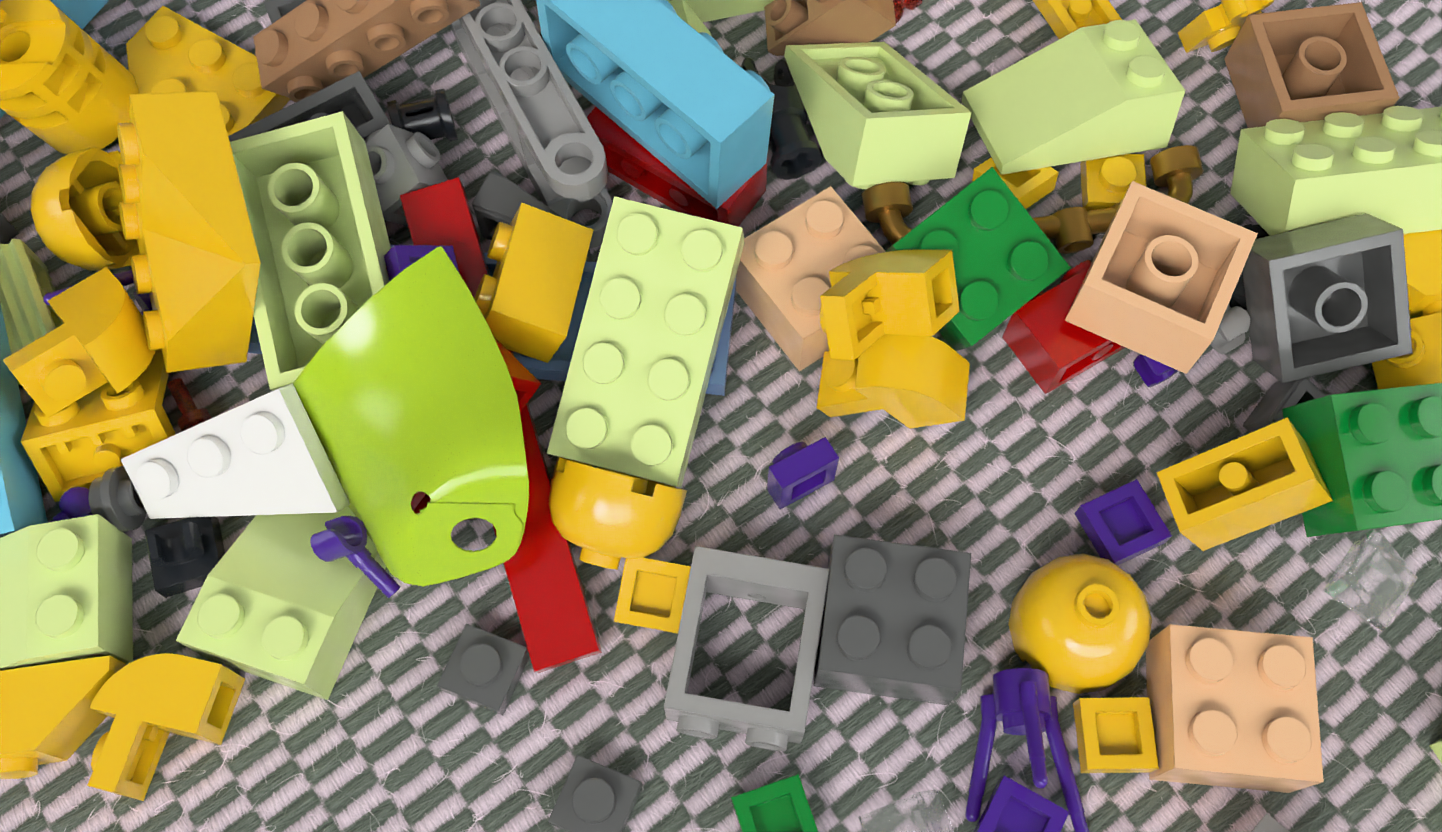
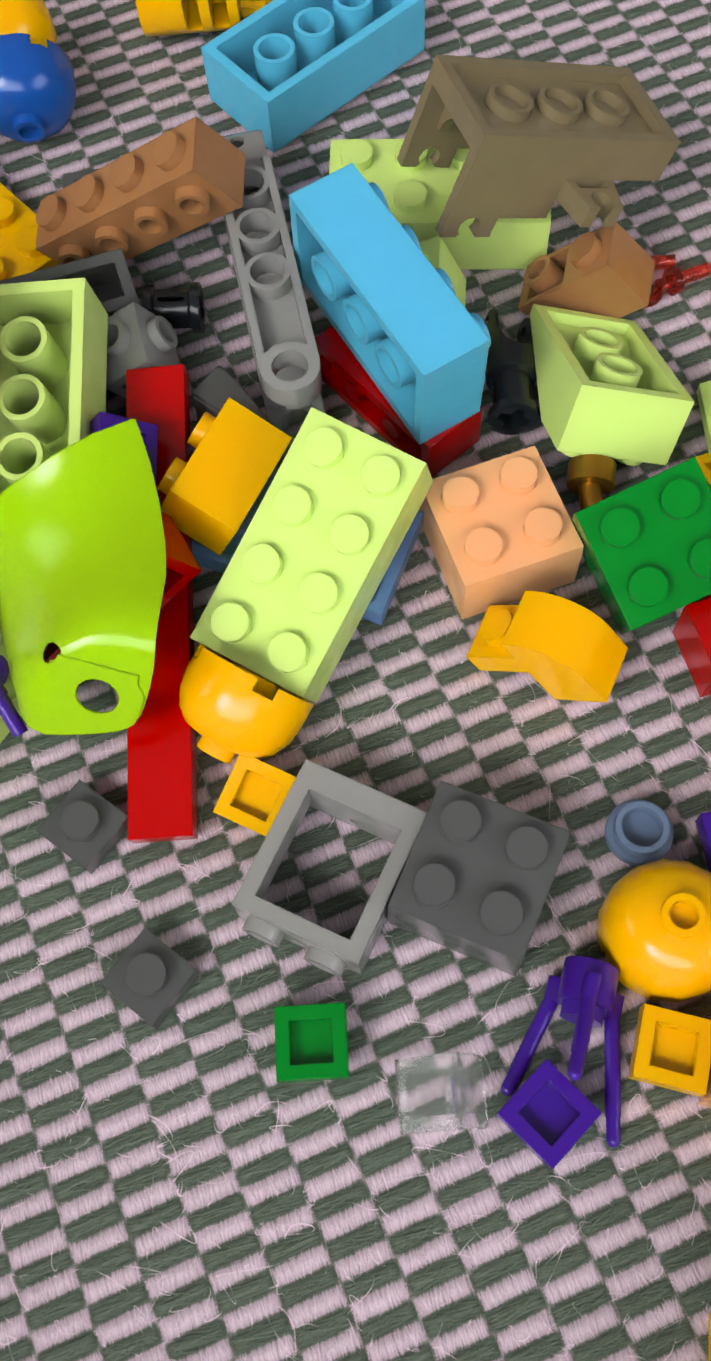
camera: 20 degrees right, 0 degrees up
(801, 471) = (432, 714): dark purple plate -> none
(887, 295) = (553, 560): yellow brick -> none
(1026, 537) = (638, 832): none -> sand blue plate

